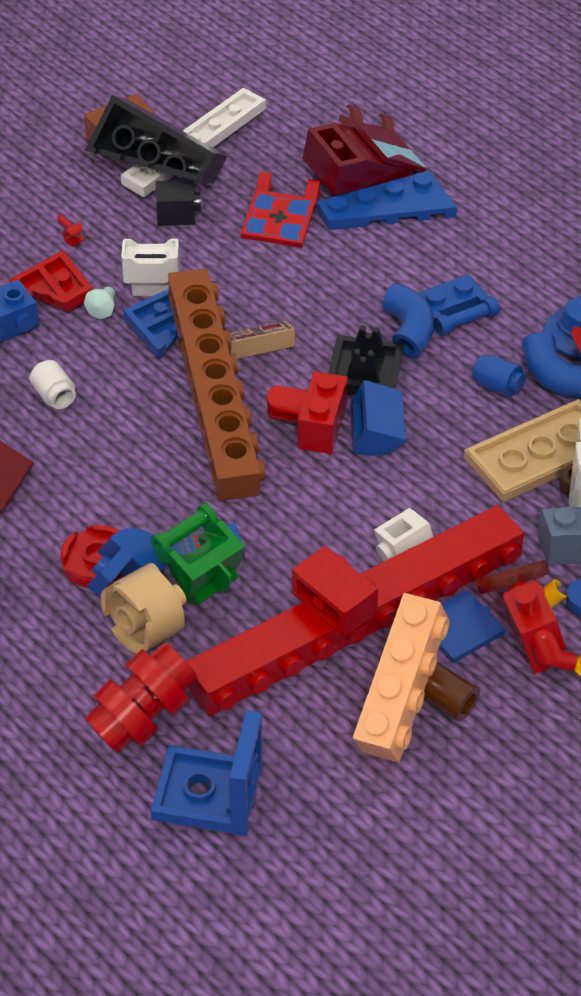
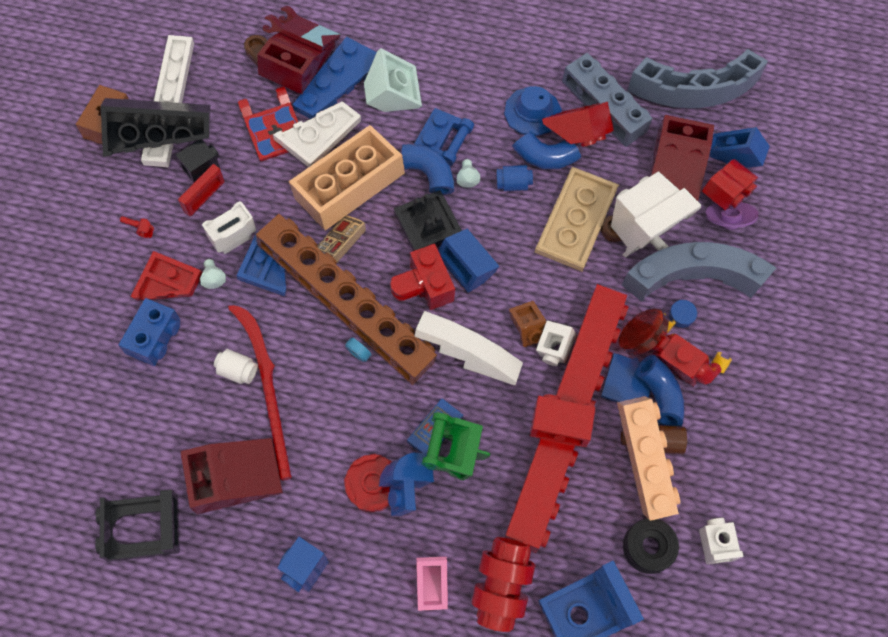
camera: 40 degrees left, 20 degrees up
(76, 662) = (432, 583): none -> bright pink slope
(83, 404) = (266, 372): none -> red piece
(144, 608) = (447, 510): tan brick -> none
(157, 226) = (201, 190): none -> red tile
(186, 434) = (358, 350): none -> dark azure tile
(307, 496) = (464, 344): none -> white slope
(313, 284) = (347, 177): none -> light nougat brick
(319, 240) = (317, 136): none -> white wing
(338, 756) = (667, 546): none -> black tyre
(389, 503) = (529, 322): none -> dark orange bracket
(422, 821) = (715, 550): none -> white brick
(440, 230) = (392, 83): none -> light aqua slope
(448, 349) = (468, 175): none -> light aqua rock
(491, 647) = (664, 388): none -> blue cylinder

